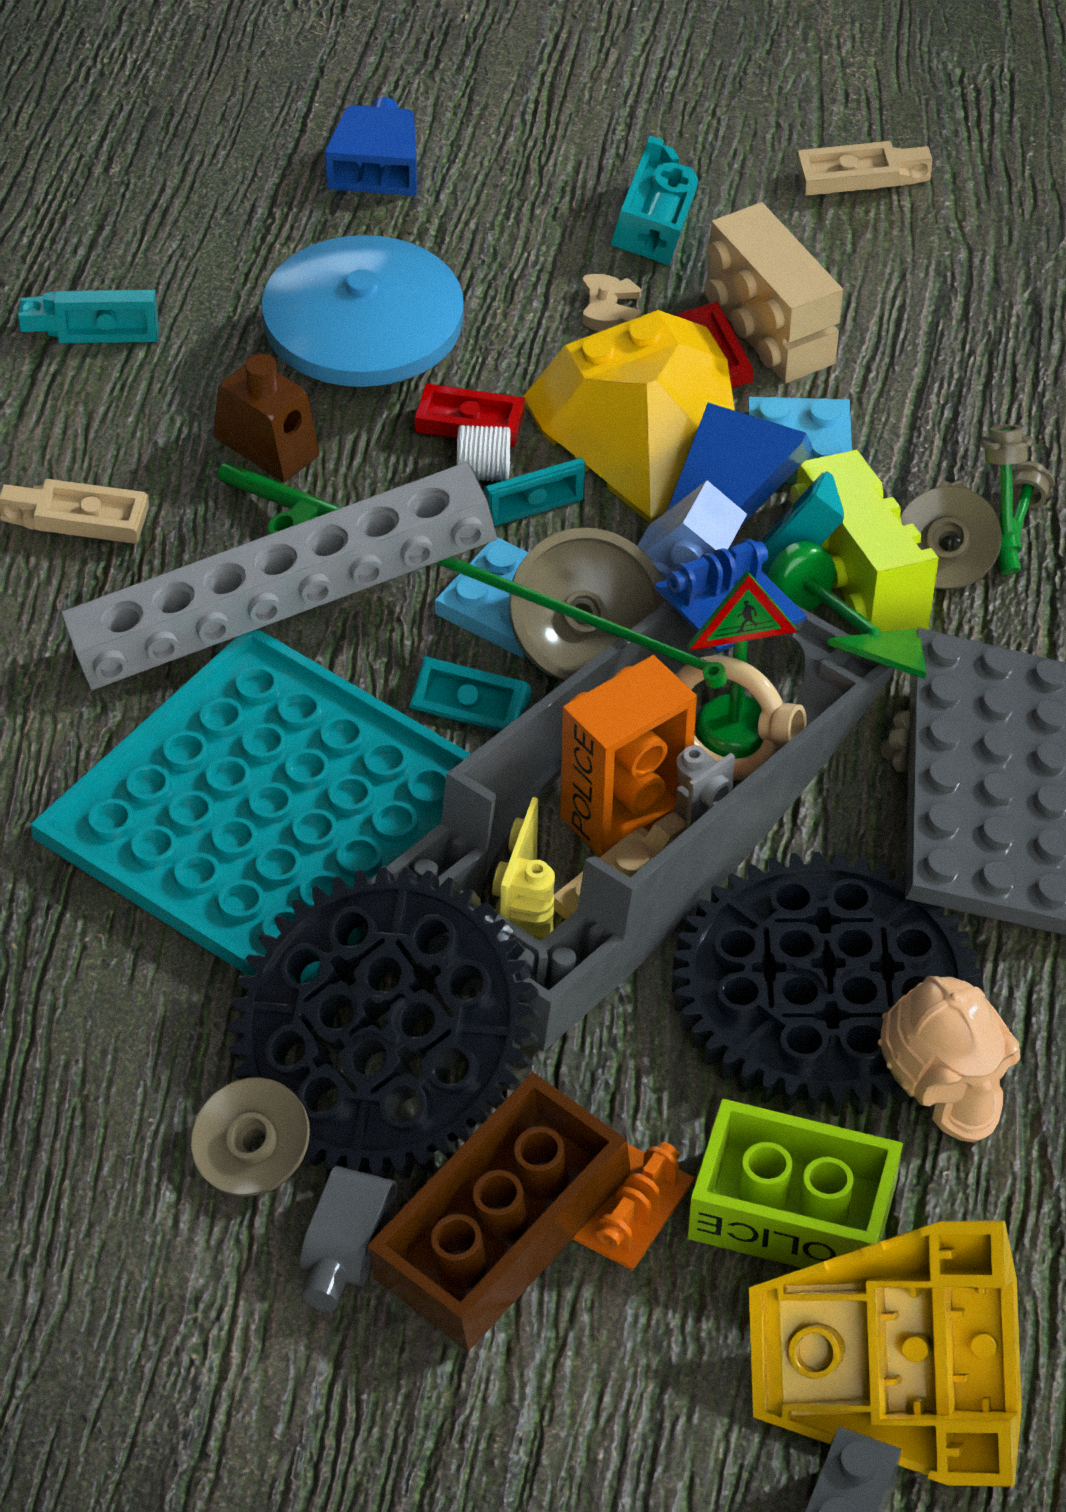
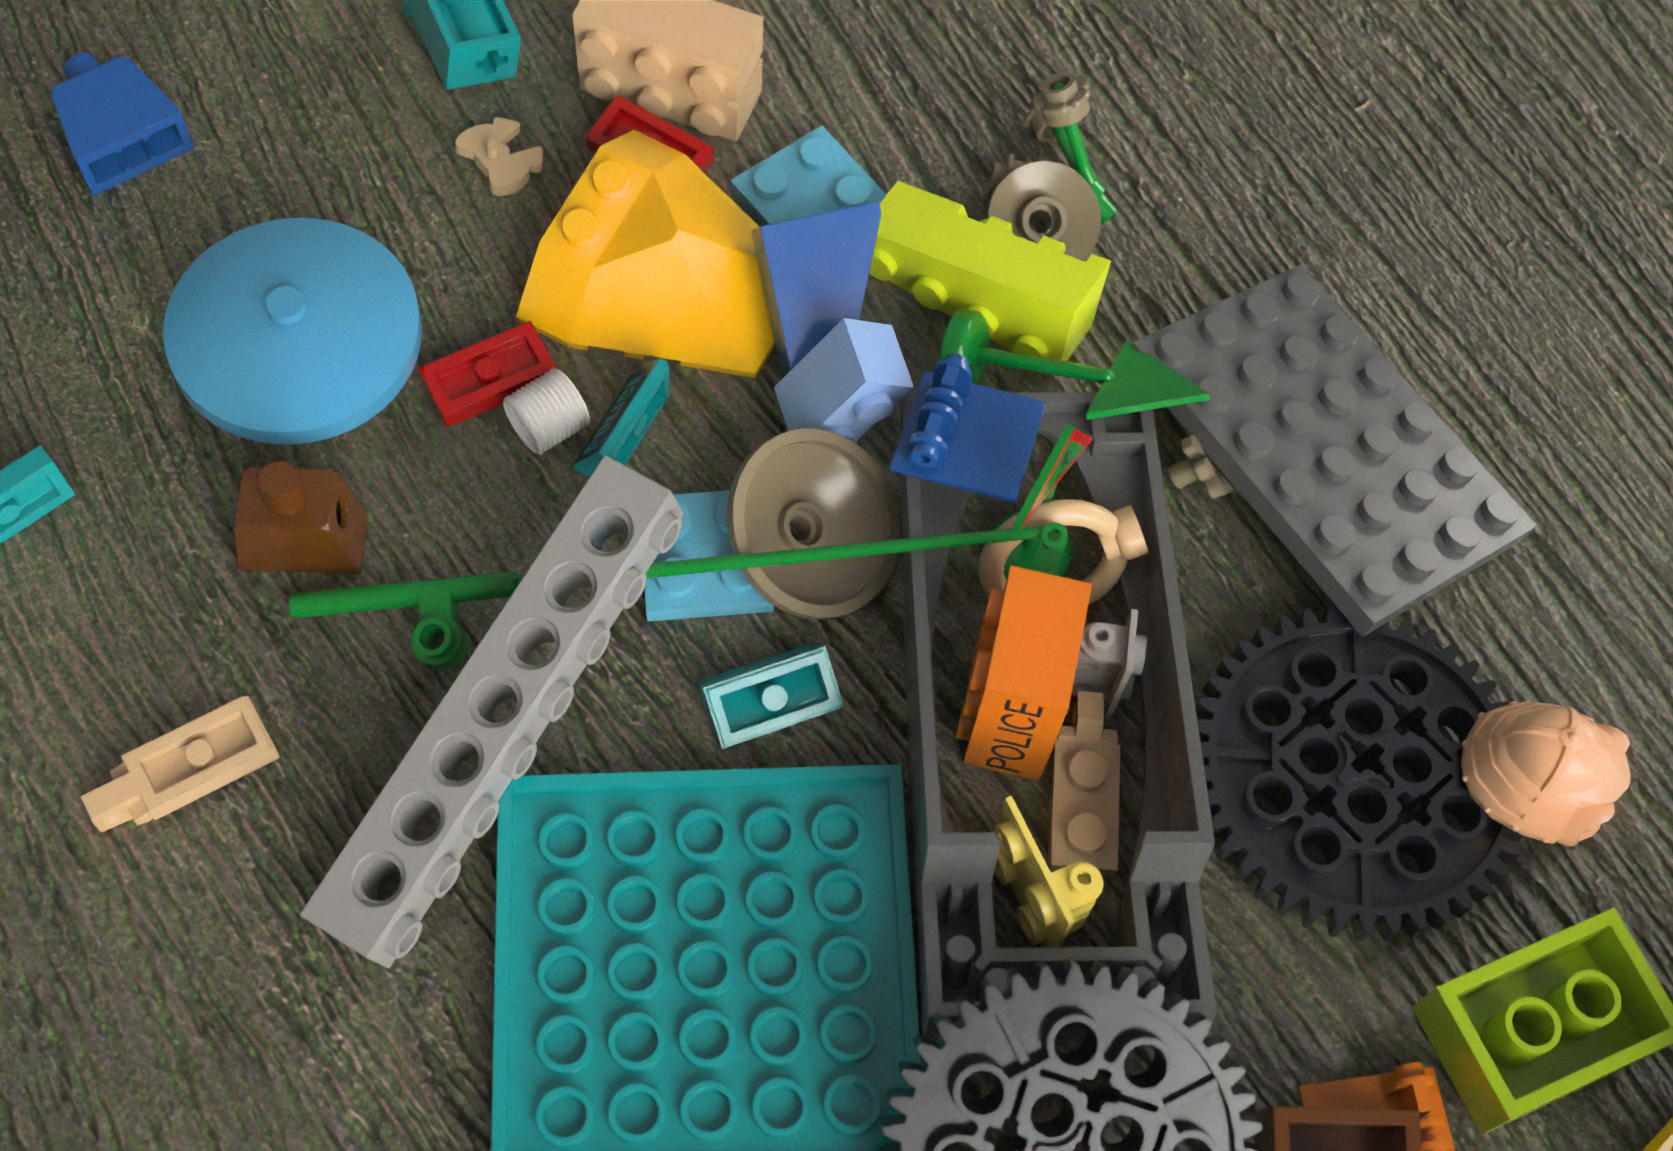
camera: 45 degrees left, 15 degrees up
(809, 519) = (926, 296): teal slope -> none

